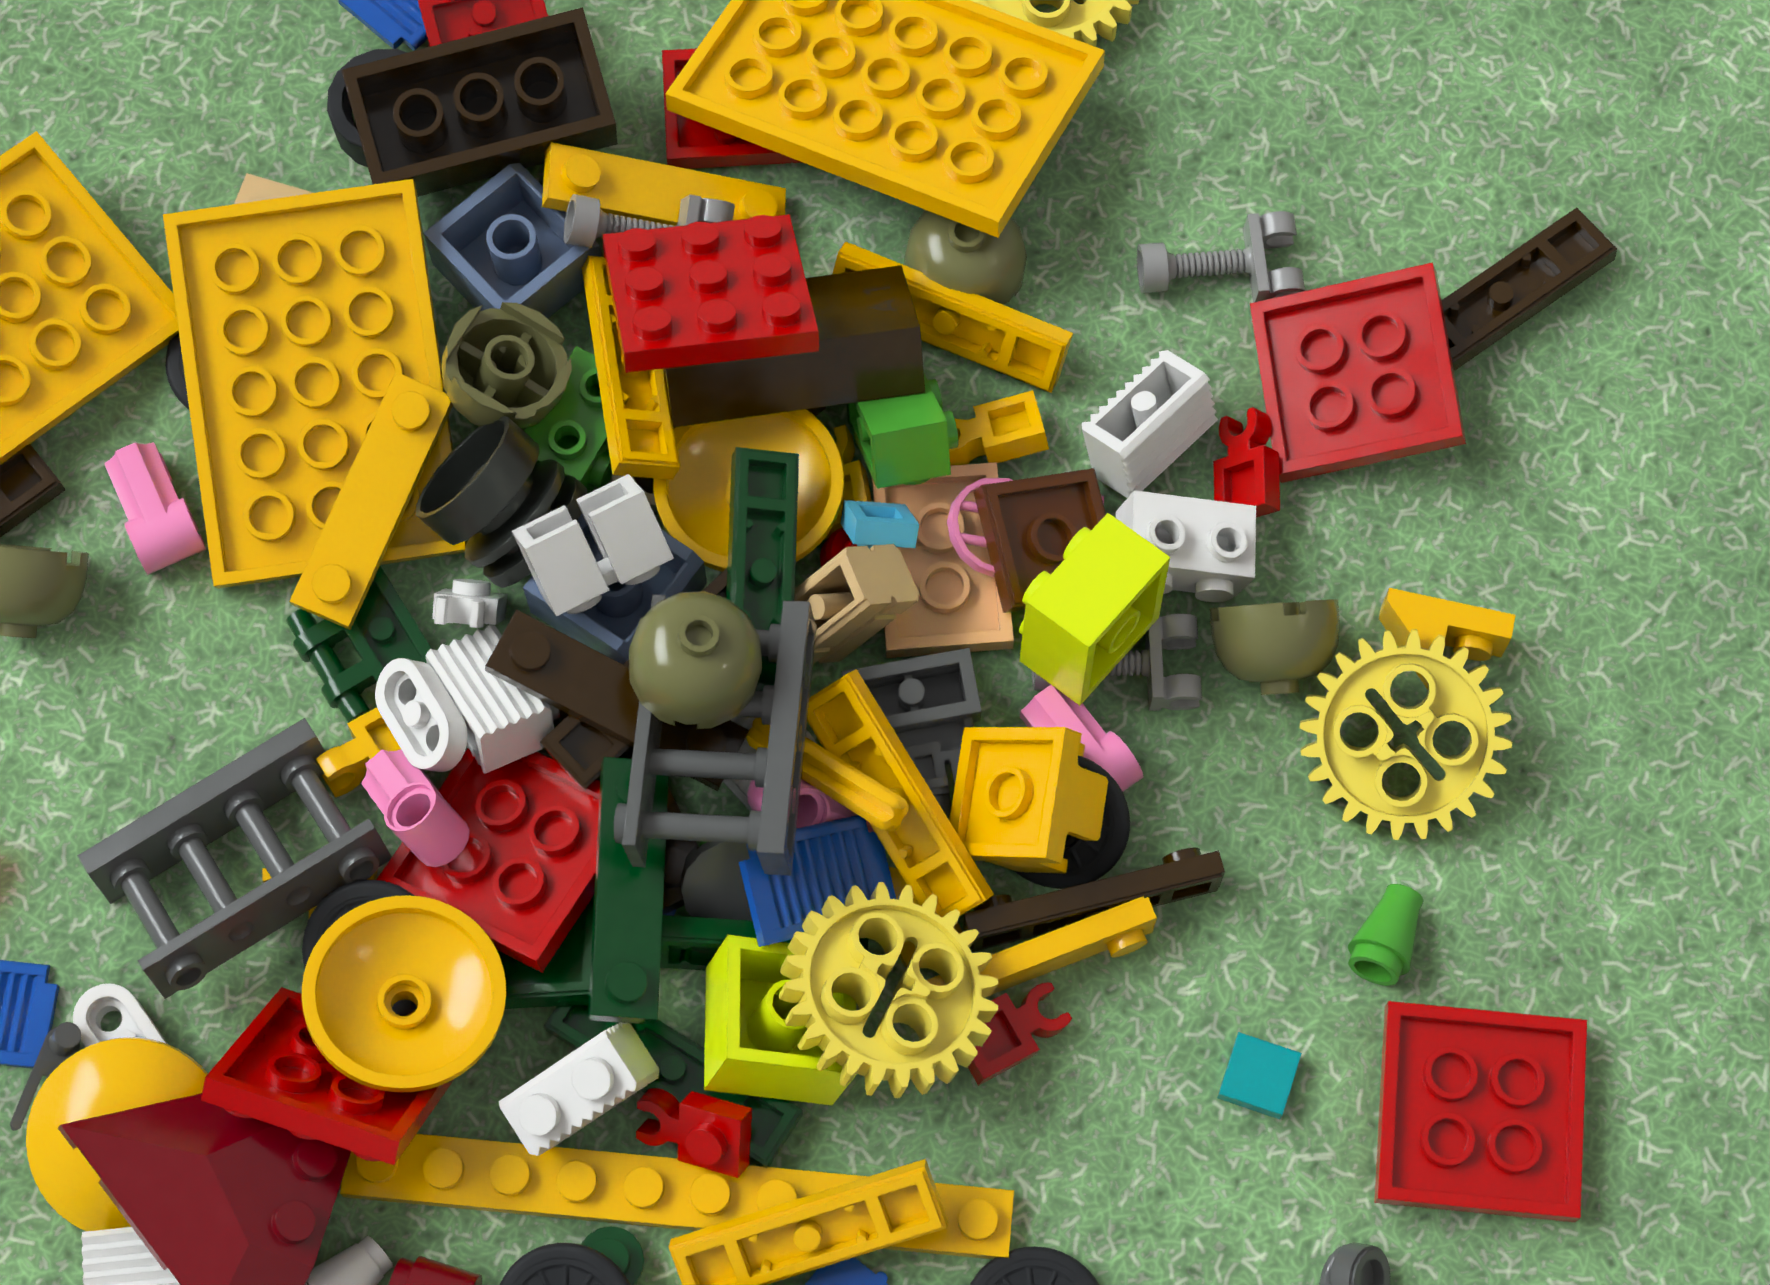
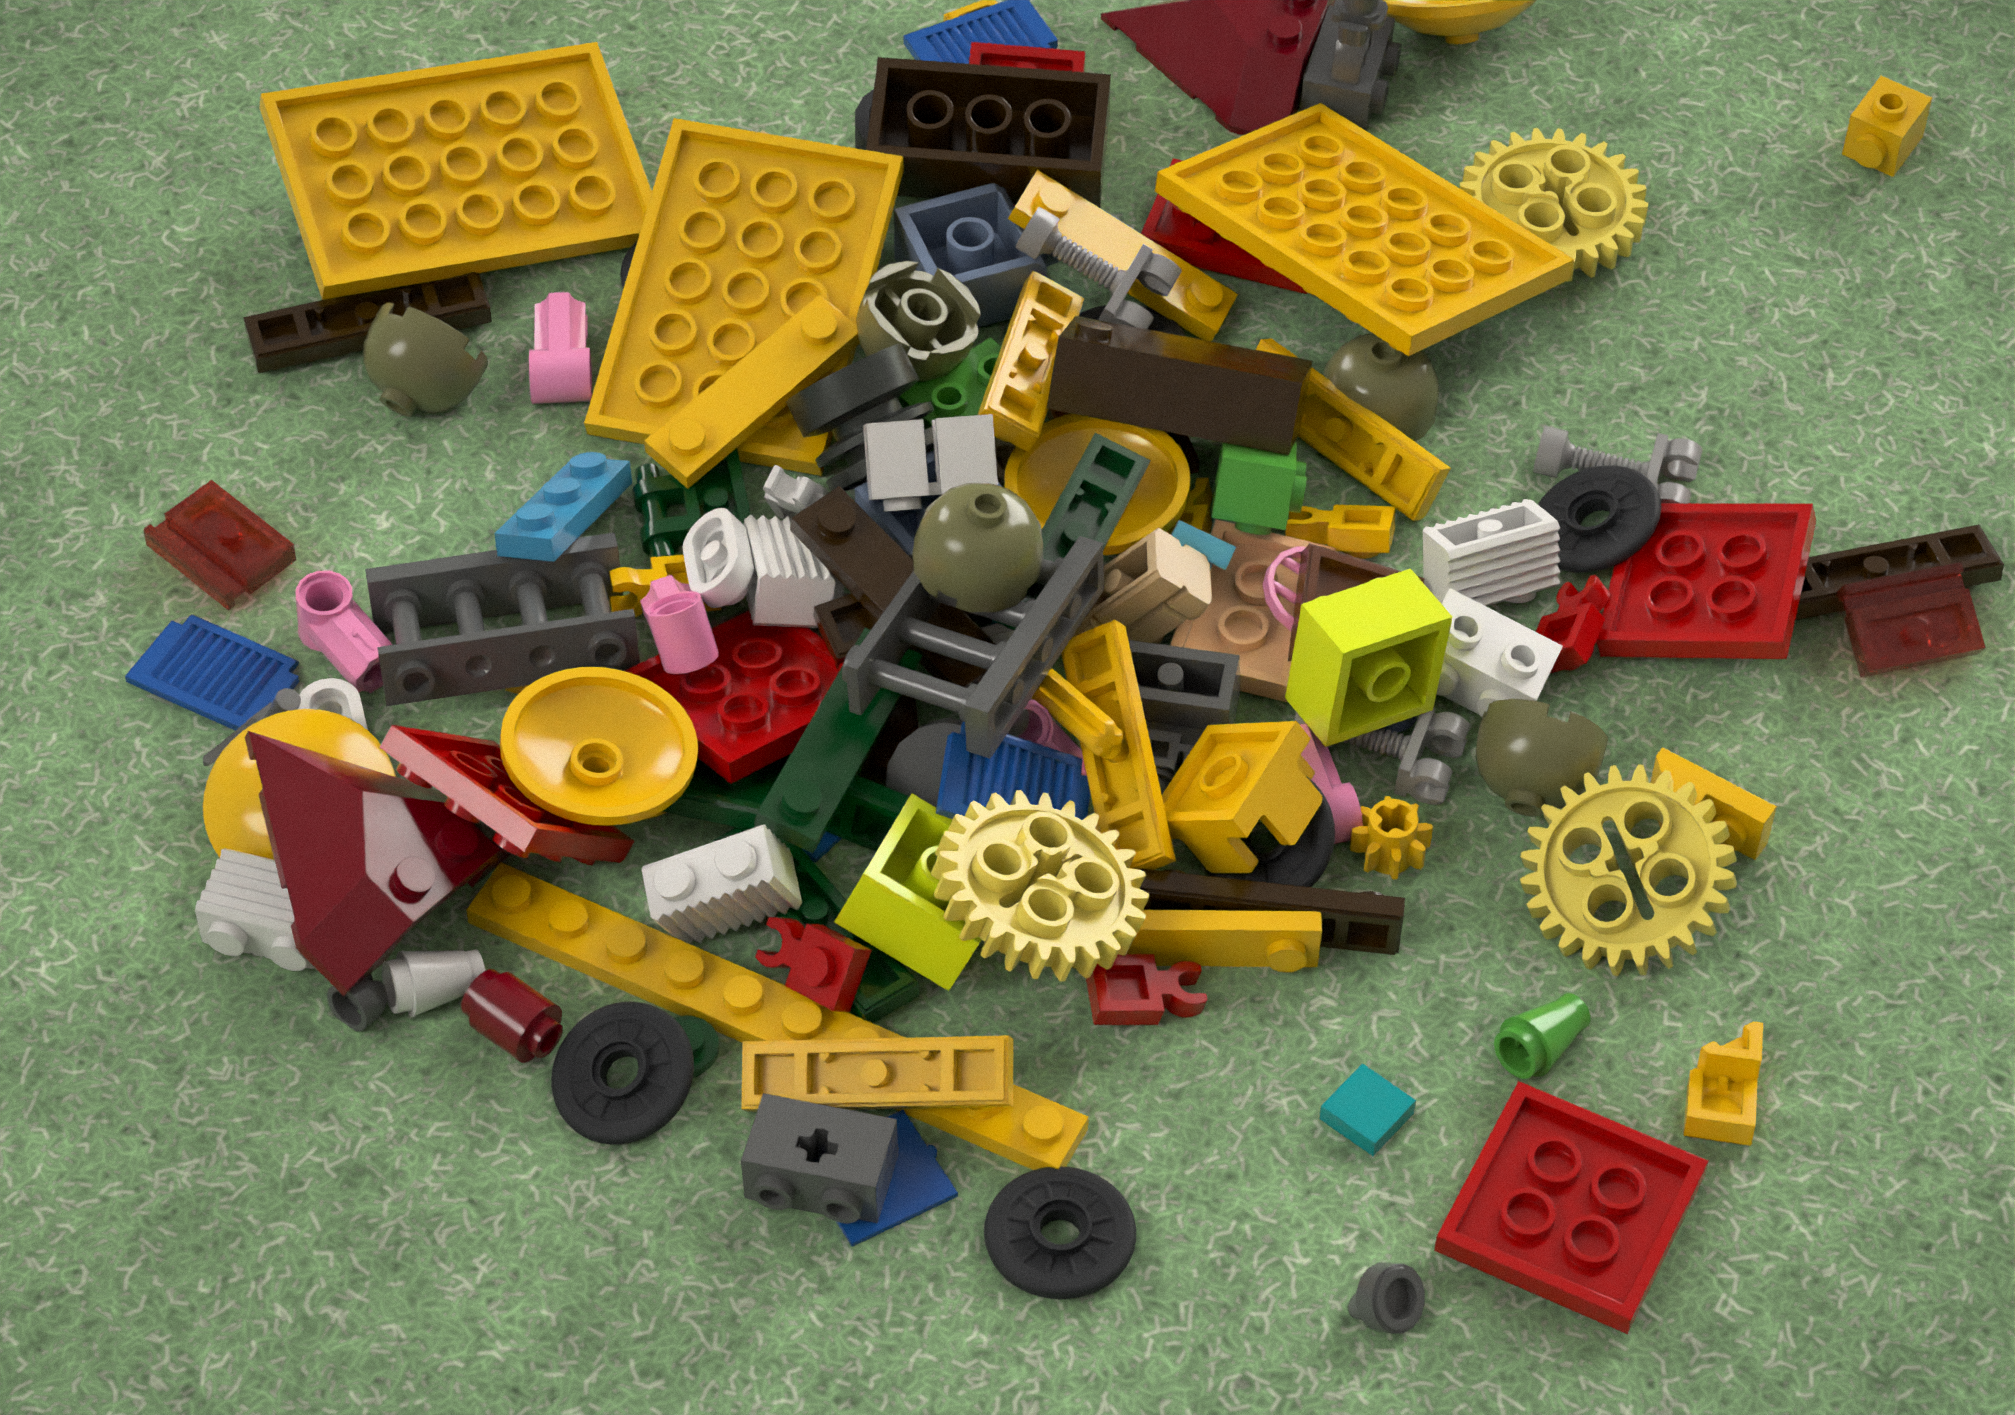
camera: 20 degrees right, 20 degrees down
(88, 928) = (339, 628): none -> bright pink piece
(240, 705) = (563, 507): none -> dark azure plate
(709, 293) = (1123, 303): red plate -> none
(1189, 779) = (1391, 837): none -> yellow gear
(1261, 331) = (1630, 524): none -> black wheel
(1554, 343) = (1911, 620): none -> clear red plate
(1567, 928) = (1724, 1089): none -> yellow slope

